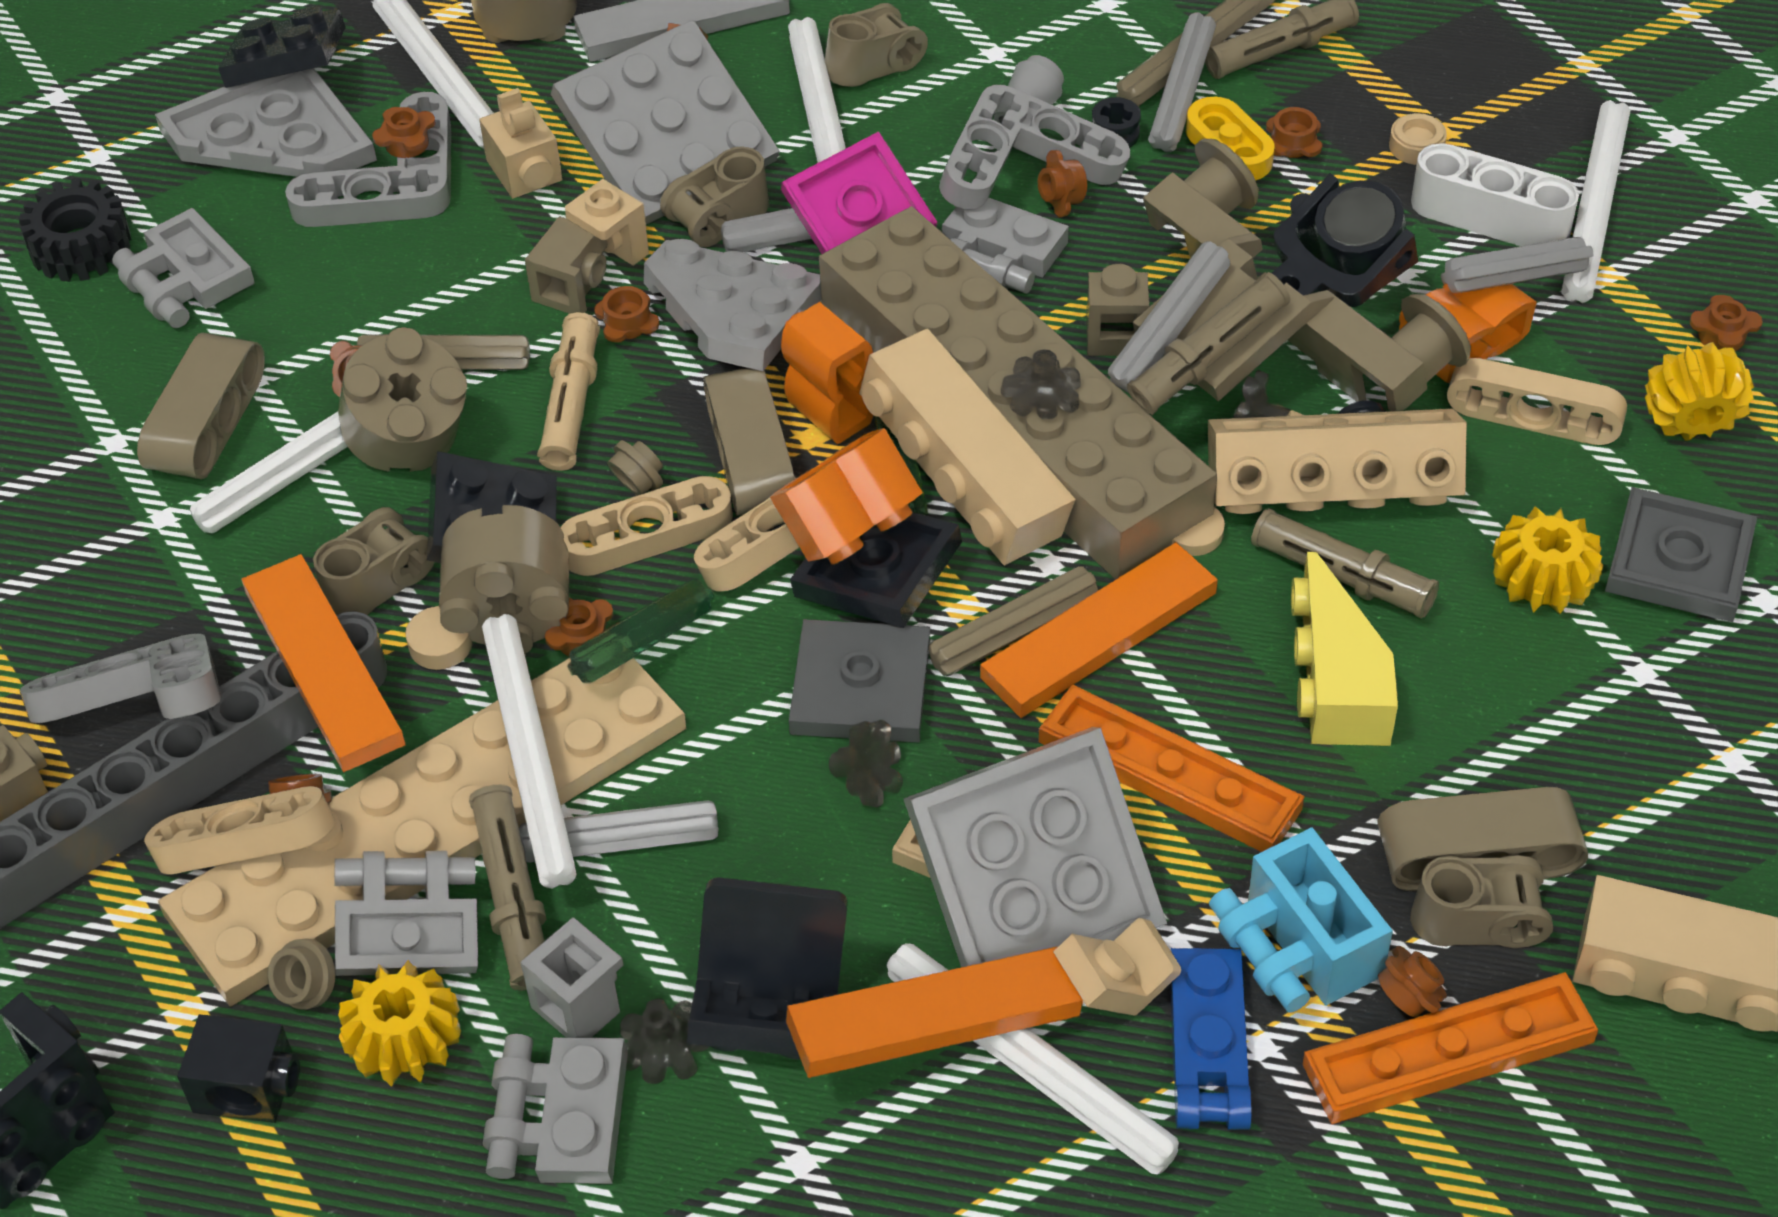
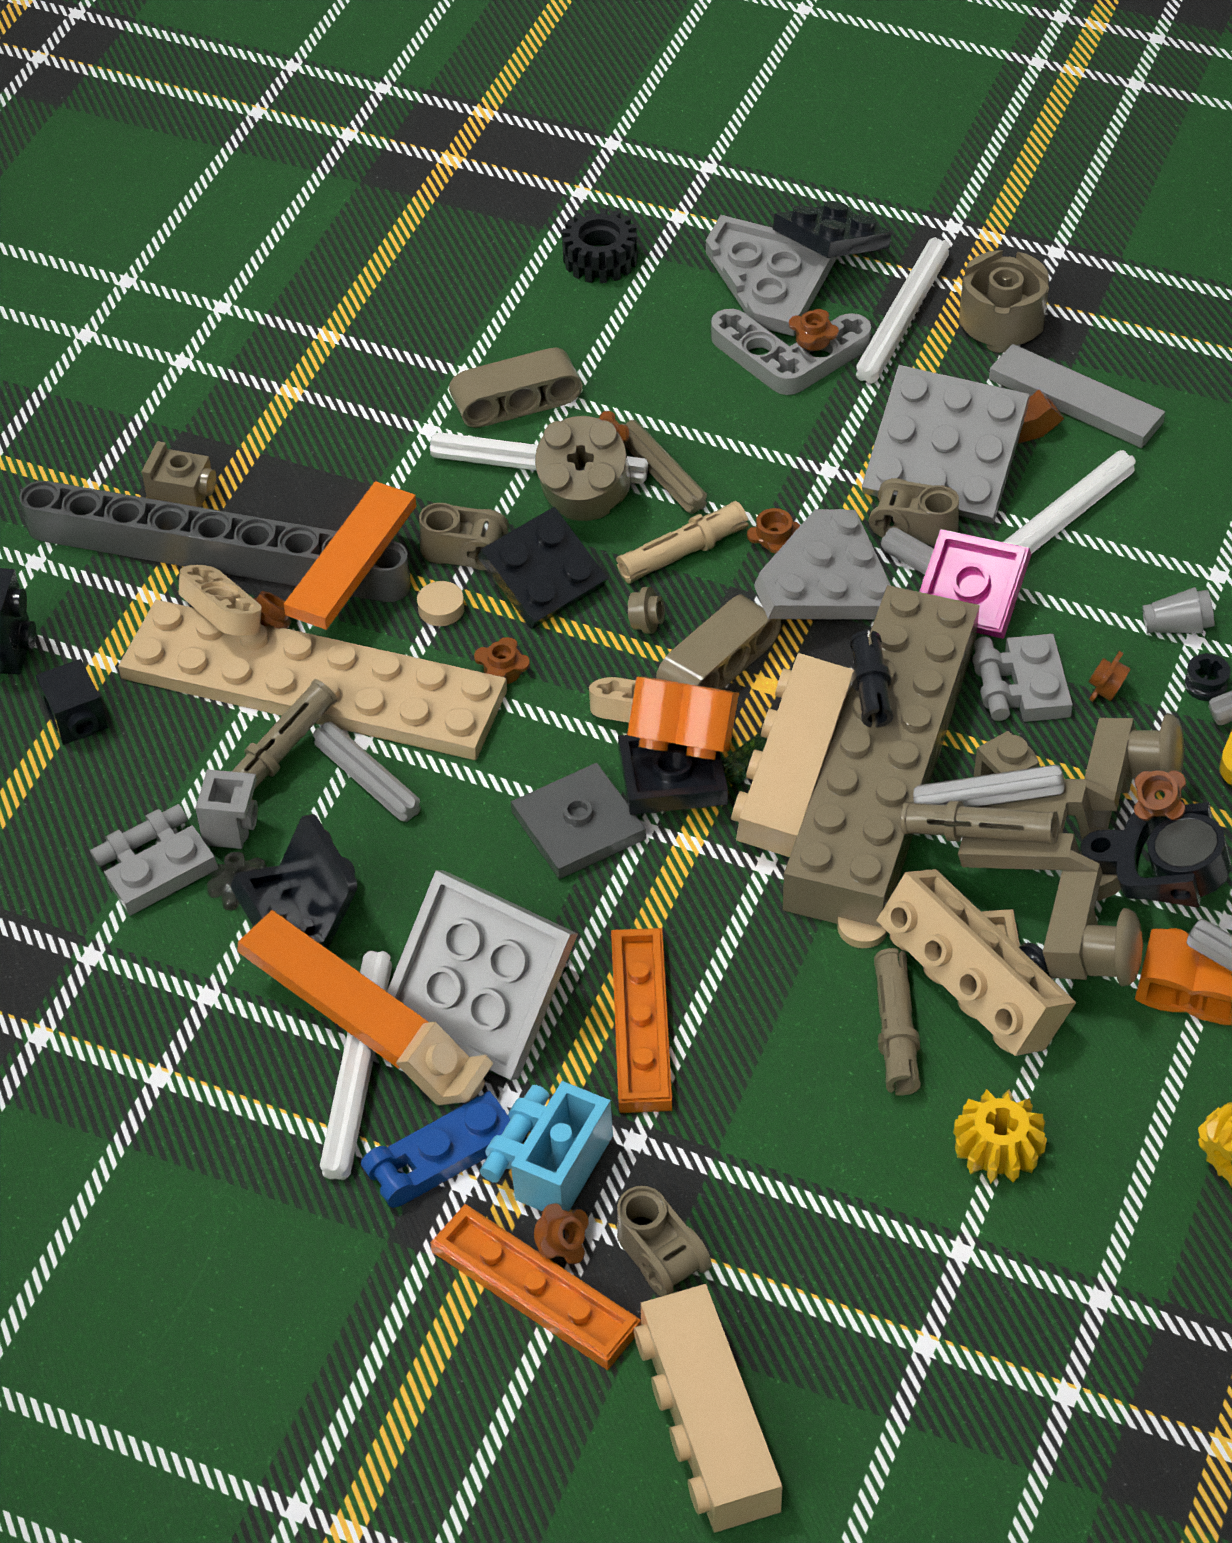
camera: 55 degrees right, 0 degrees up
(175, 669) = (287, 493): light grey beam -> none
(196, 257) = (627, 310): light grey plate -> none
(302, 974) = (154, 690): dark tan plate -> none
(389, 932) = (210, 718): light grey plate -> none
(399, 1023) = (152, 751): yellow gear -> none
(502, 567) = (488, 598): dark tan brick -> none
(520, 146) = (861, 390): tan brick -> none
(529, 752) = (373, 687): white axle -> none
(565, 266) = (783, 475): dark tan brick -> none
(612, 217) = (832, 463): tan bracket -> none
(640, 631) = (512, 687): clear green axle -> none
(692, 525) = (600, 628): tan beam -> none
(826, 371) = (793, 631): orange brick -> none
(868, 762) = (508, 858): clear smoke plant -> none
(871, 45) = (1135, 499): dark tan piece -> none
(953, 321) = (871, 679): none -> black pin
(1010, 621) = (691, 870): dark tan axle -> none
(1021, 130) = (1126, 626): light grey beam -> none
(1042, 384) = (864, 758): clear smoke plant -> none
(1098, 629) = (726, 919): orange tile -> none
(1257, 400) = (987, 891): clear smoke plant -> none
(1293, 184) = (1149, 784): none -> dark orange plate
(1347, 664) = (793, 1067): light yellow slope -> none
(1483, 825) = (733, 1231): dark tan beam -> none
(1558, 390) = (1155, 1058): tan beam -> none
(1682, 554) = (1085, 1218): dark grey plate -> none

